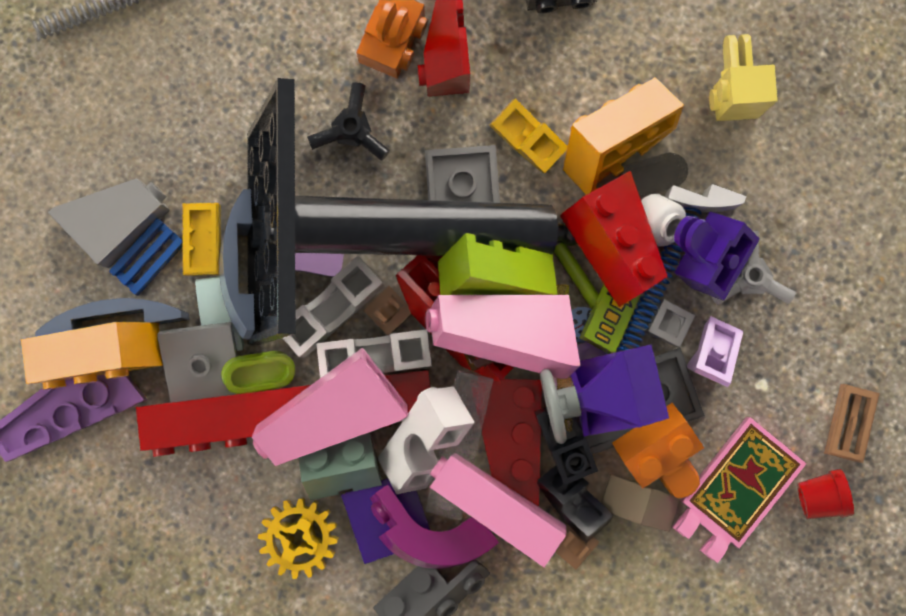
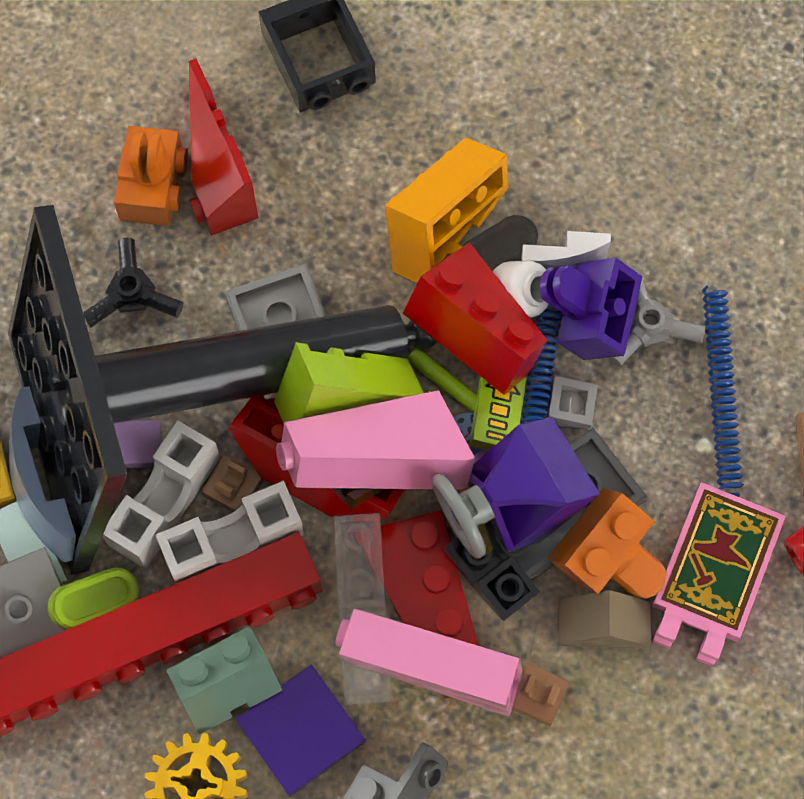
camera: 15 degrees left, 15 degrees down
(330, 411) = (198, 600): bright pink slope -> none
(428, 547) = (357, 742): magenta arch -> none
(432, 423) = (322, 574): white arch -> none
(528, 136) = (341, 245): yellow slope -> none
(575, 504) = (539, 650): black slope -> none
(717, 351) = (635, 419): lavender slope -> none
(743, 88) = (568, 118): light yellow brick -> none
(780, 383) = (720, 309): none -> blue piece

